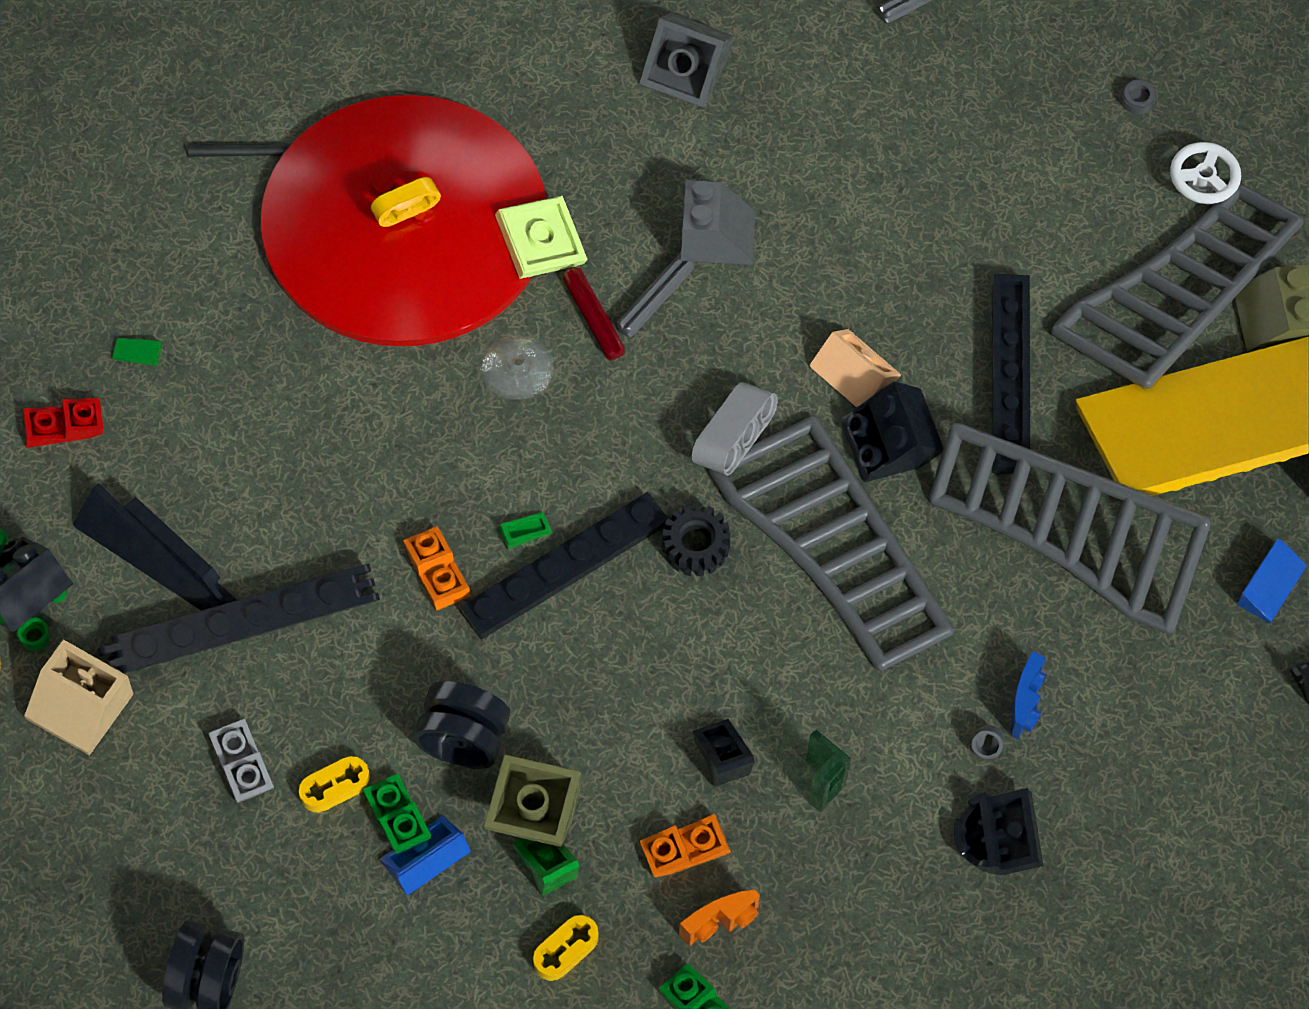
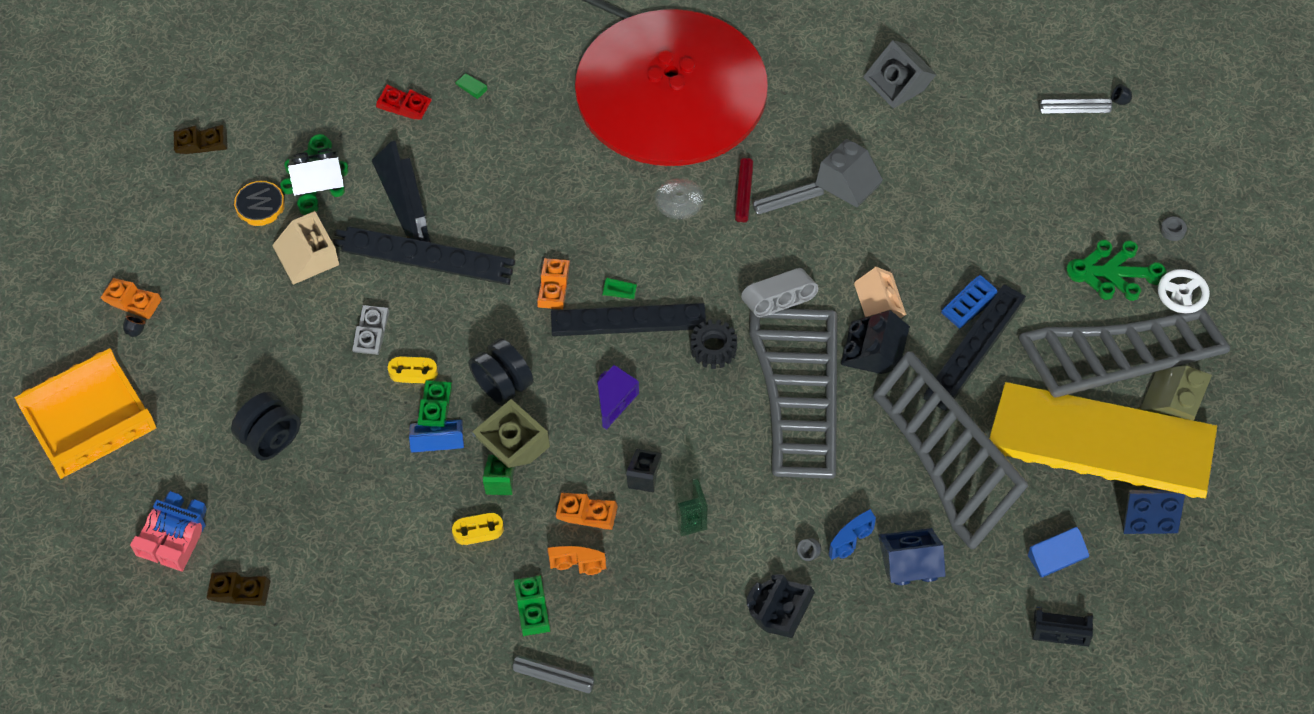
camera: 35 degrees right, 5 degrees down
(405, 201) = (667, 70): yellow beam -> none
(541, 237) = (740, 131): yellowish green tile -> none
(617, 674) = (615, 393): none -> dark purple slope
(972, 296) = (978, 288): none -> blue slope
(1107, 190) = (1113, 271): none -> green plant
(1113, 680) = (912, 556): none -> dark blue slope

